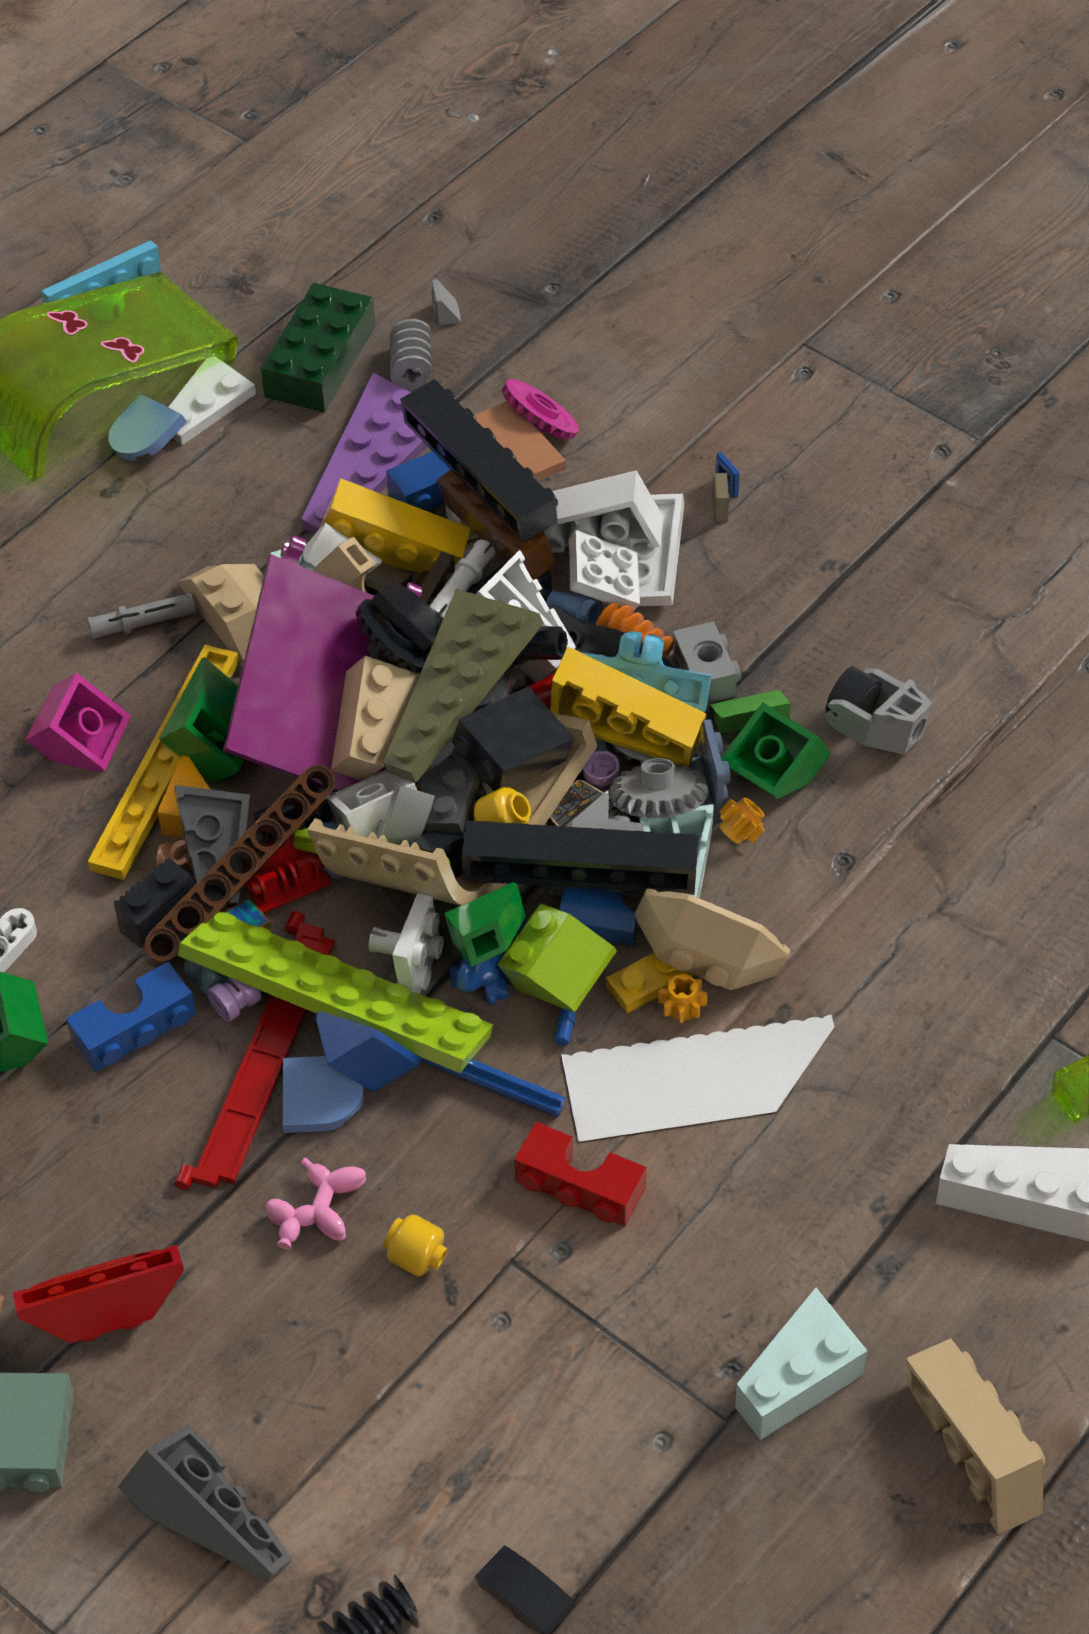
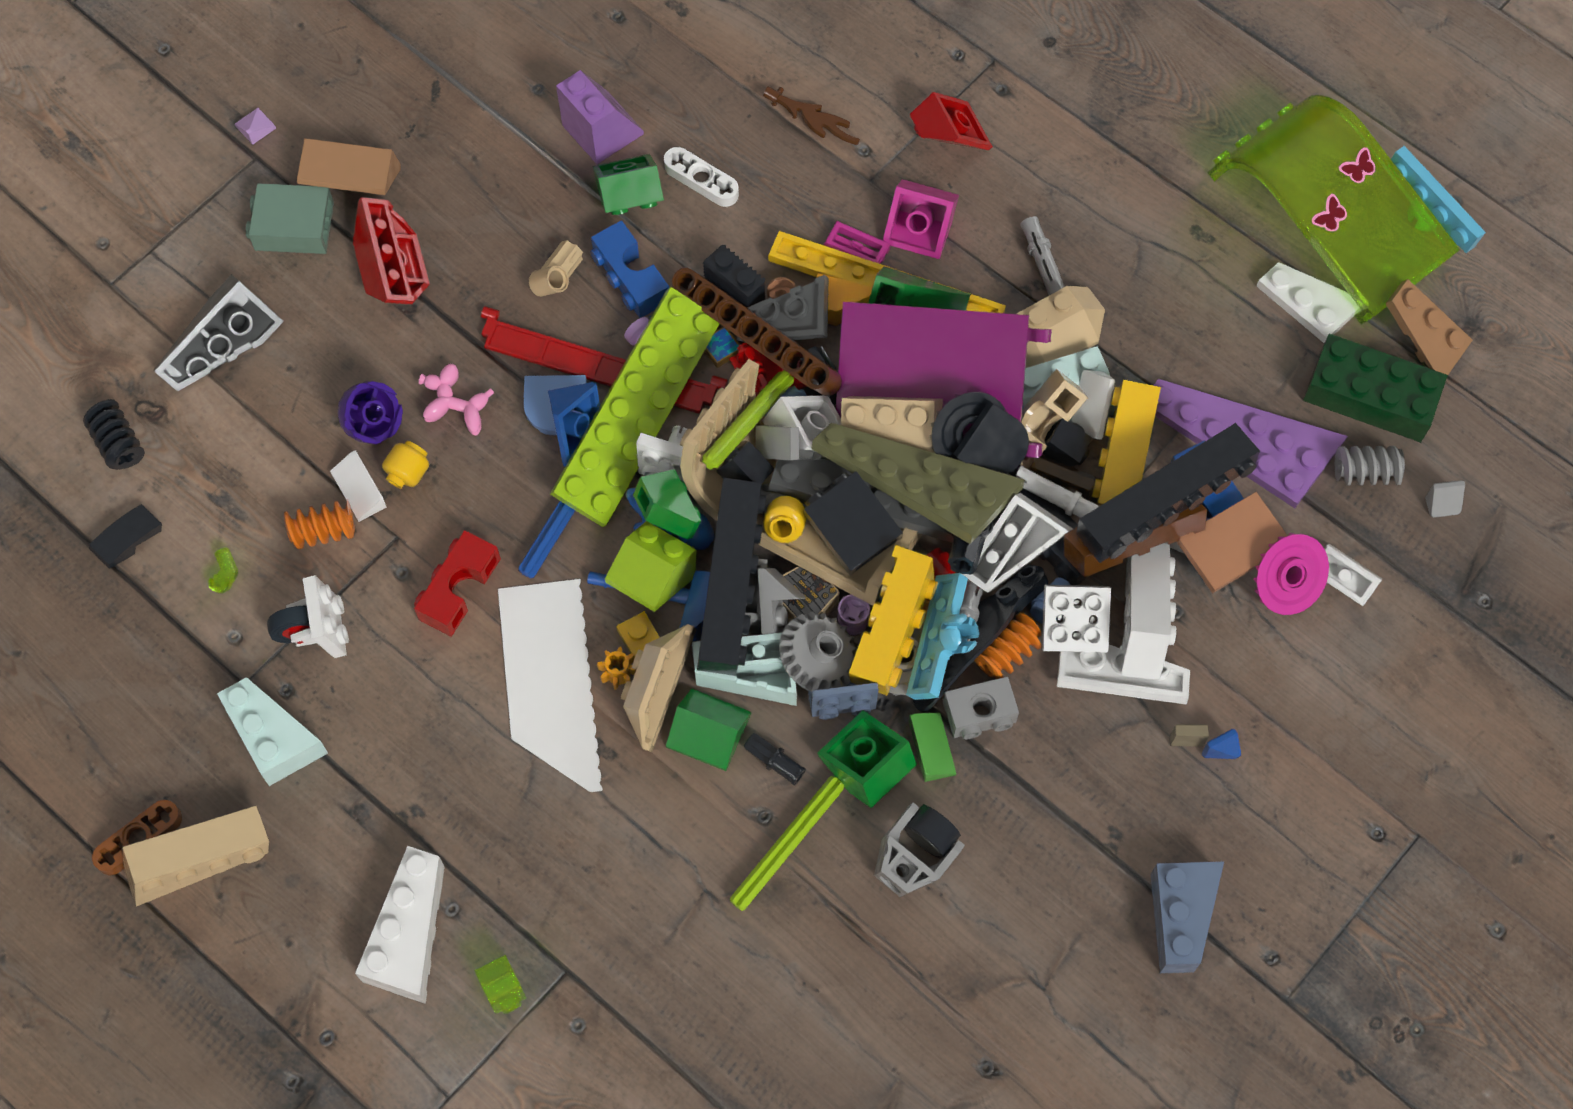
camera: 90 degrees right, 15 degrees up
(111, 795) = (855, 248): none -> dark pink tile
(138, 1097) = (556, 271): none -> tan piece
(144, 428) = (1264, 249): tile -> none
(250, 301) = (1430, 329): none -> medium nougat wing
(342, 1290) = (370, 412): none -> dark purple cylinder
(442, 1306) = (358, 487): none -> white slope
(504, 1339) = (320, 525): none -> orange piece
(537, 372) = (1350, 576): none -> white slope
(573, 1454) = (227, 574): none -> clear neon green arm
(647, 1320) = (312, 620): none -> white plate
(741, 820) = (797, 726): light orange gear -> none
(756, 895) = (707, 729): none -> green slope
(779, 845) = (774, 758): none -> black axle
(876, 833) = (786, 843): none -> lime axle
(914, 502) = (1183, 911): none -> sand blue wedge
(986, 1531) = (150, 814): none -> dark orange beam

